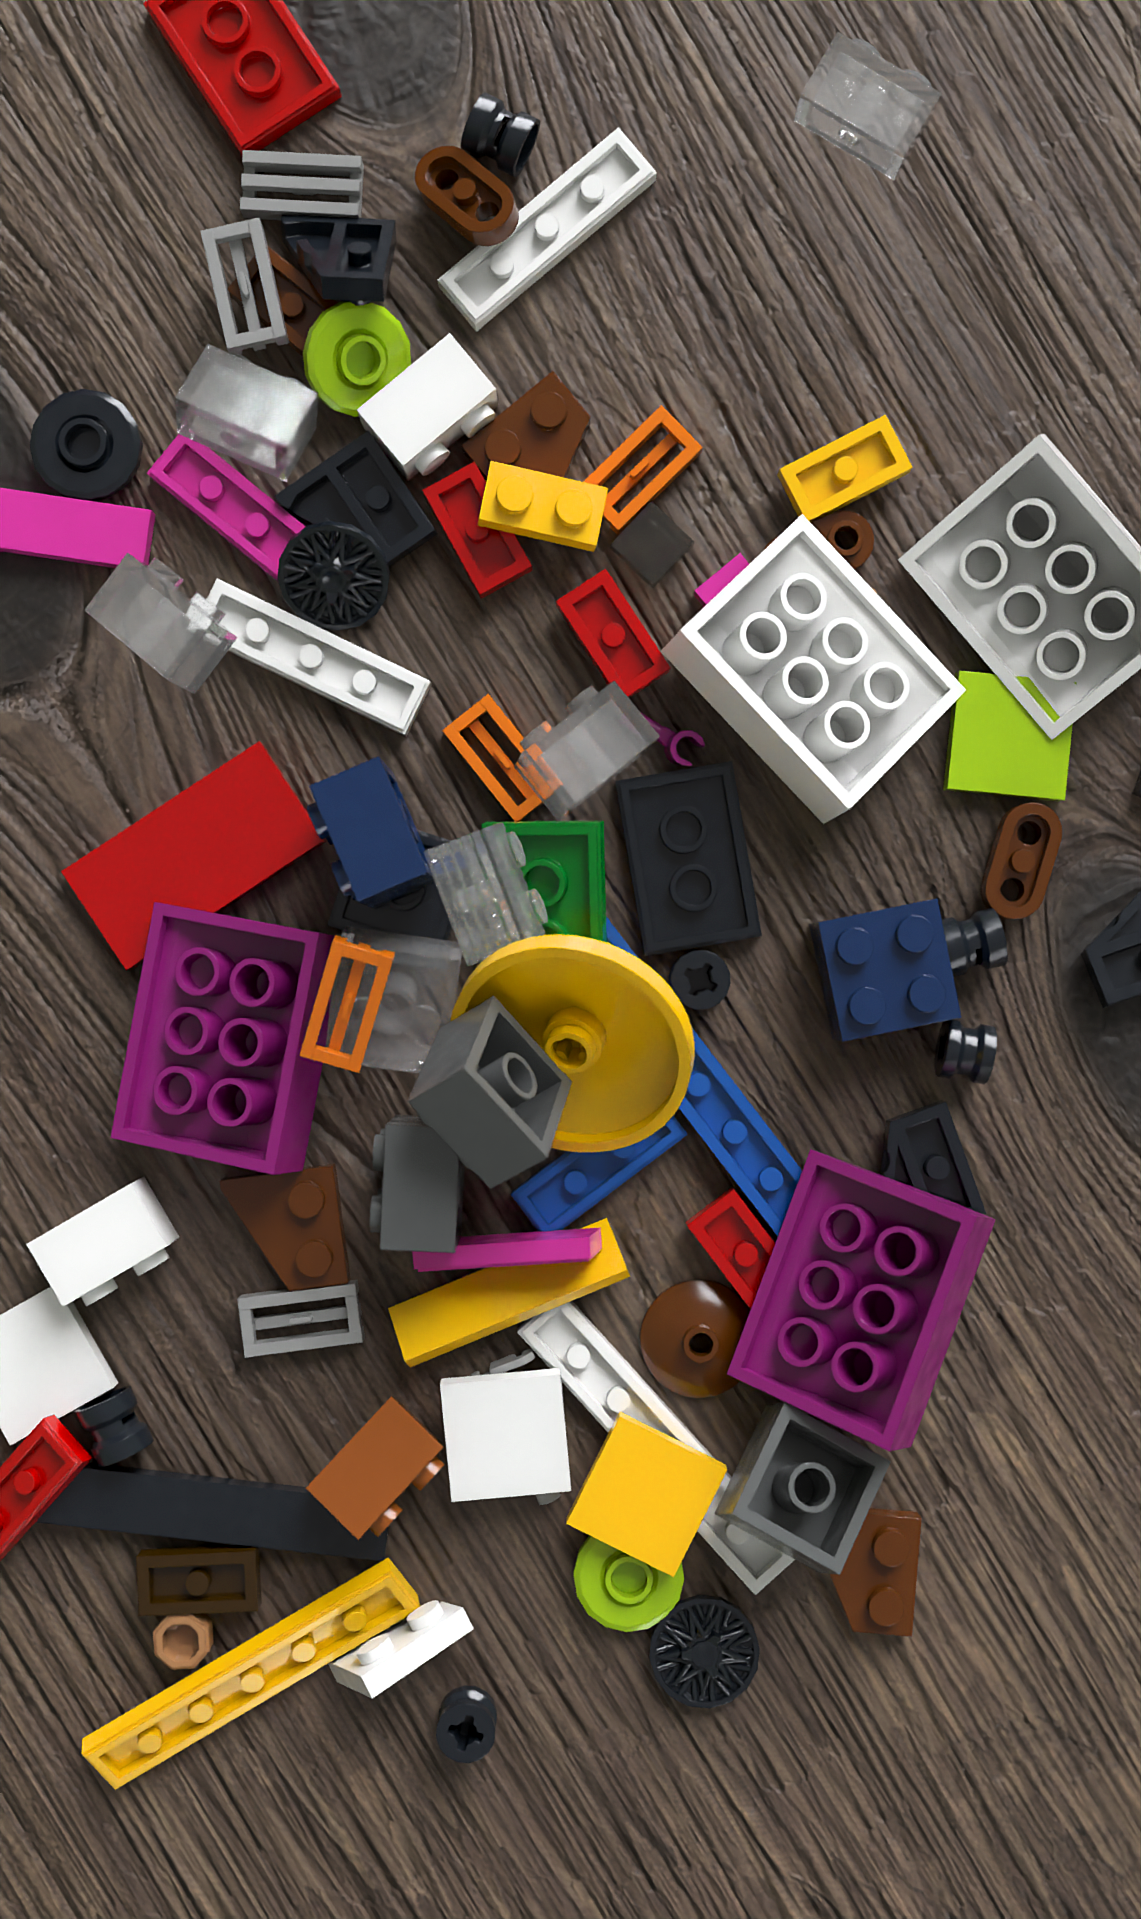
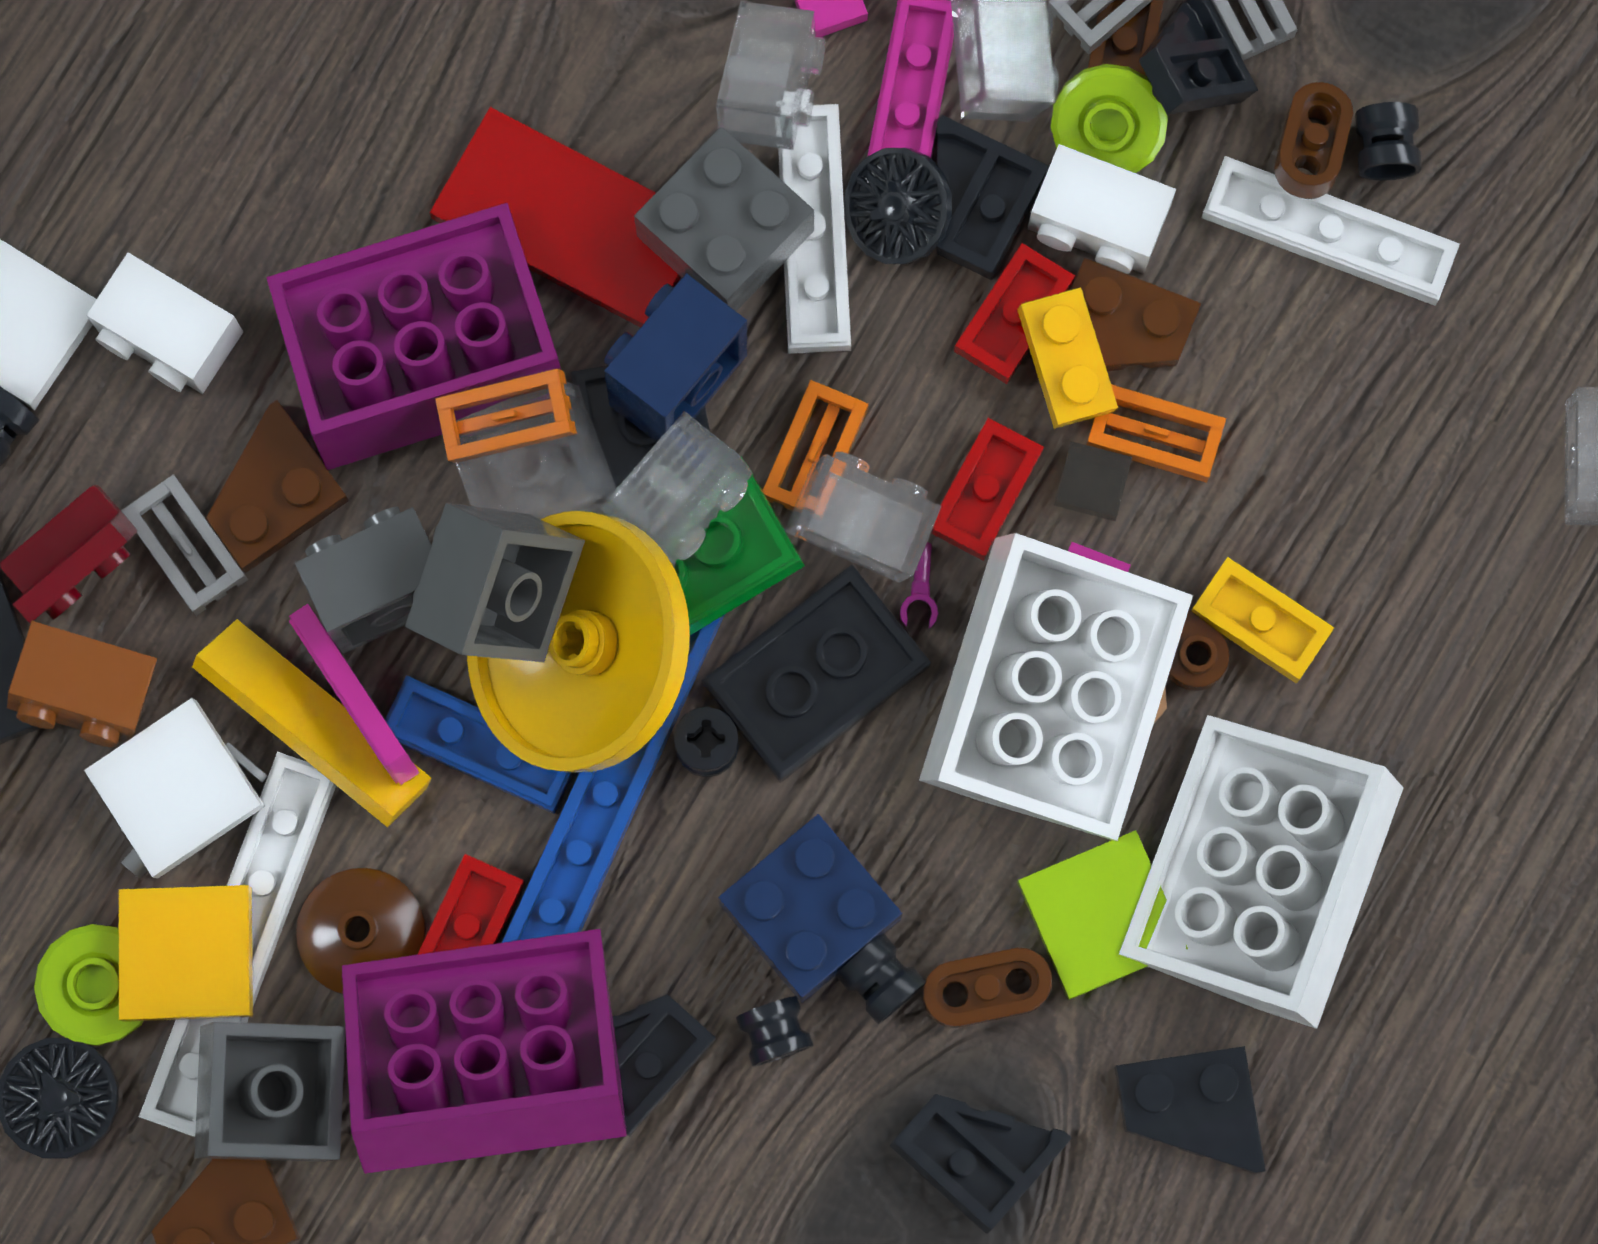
camera: 60 degrees right, 10 degrees down
(258, 1422) = (65, 550): none -> dark red bracket
(271, 727) = (725, 220): none -> dark grey brick

